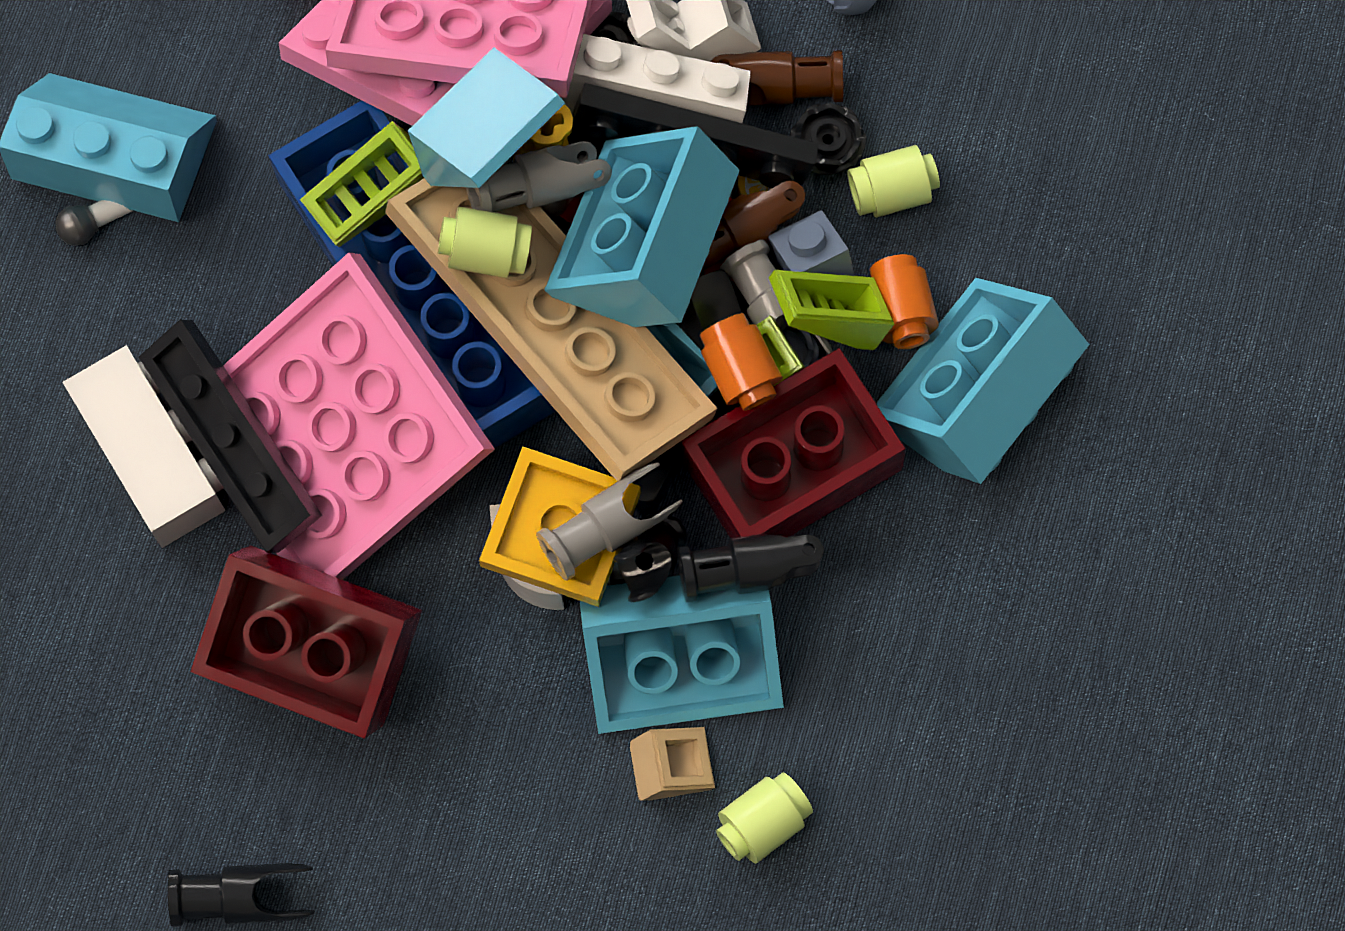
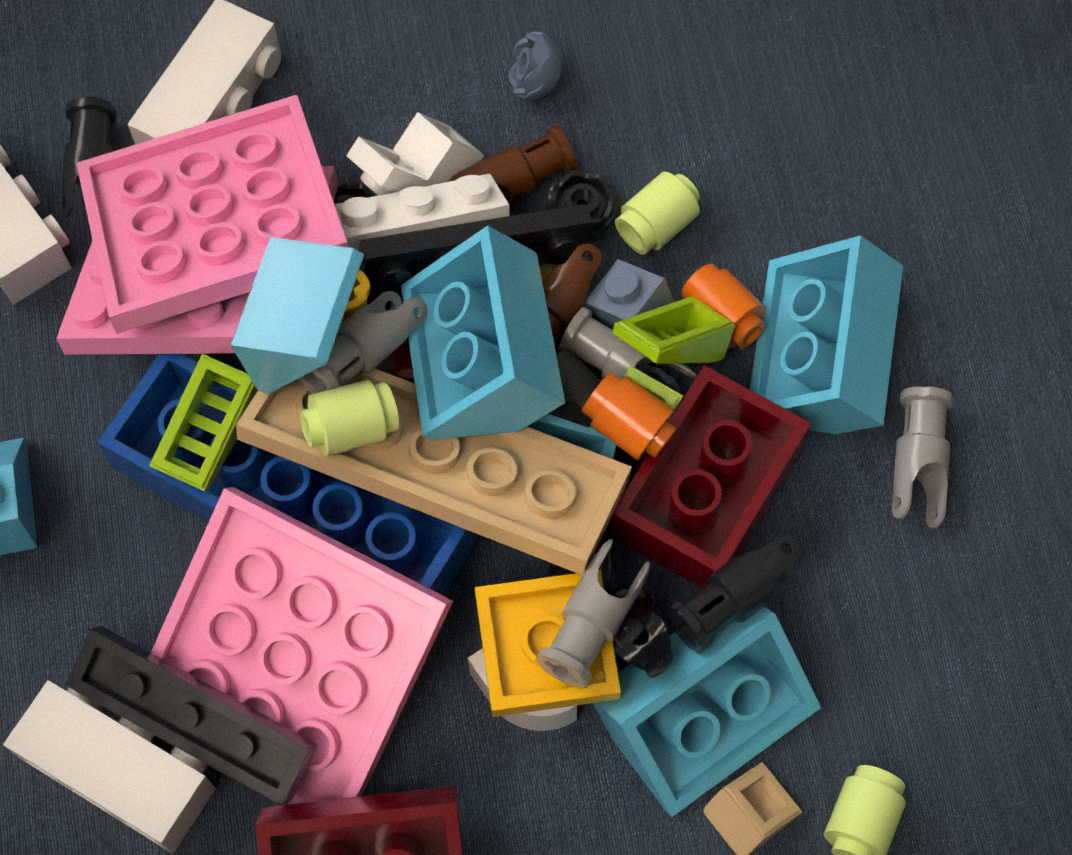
camera: 30 degrees left, 5 degrees down
(1009, 524) = (923, 452): none -> light grey piece

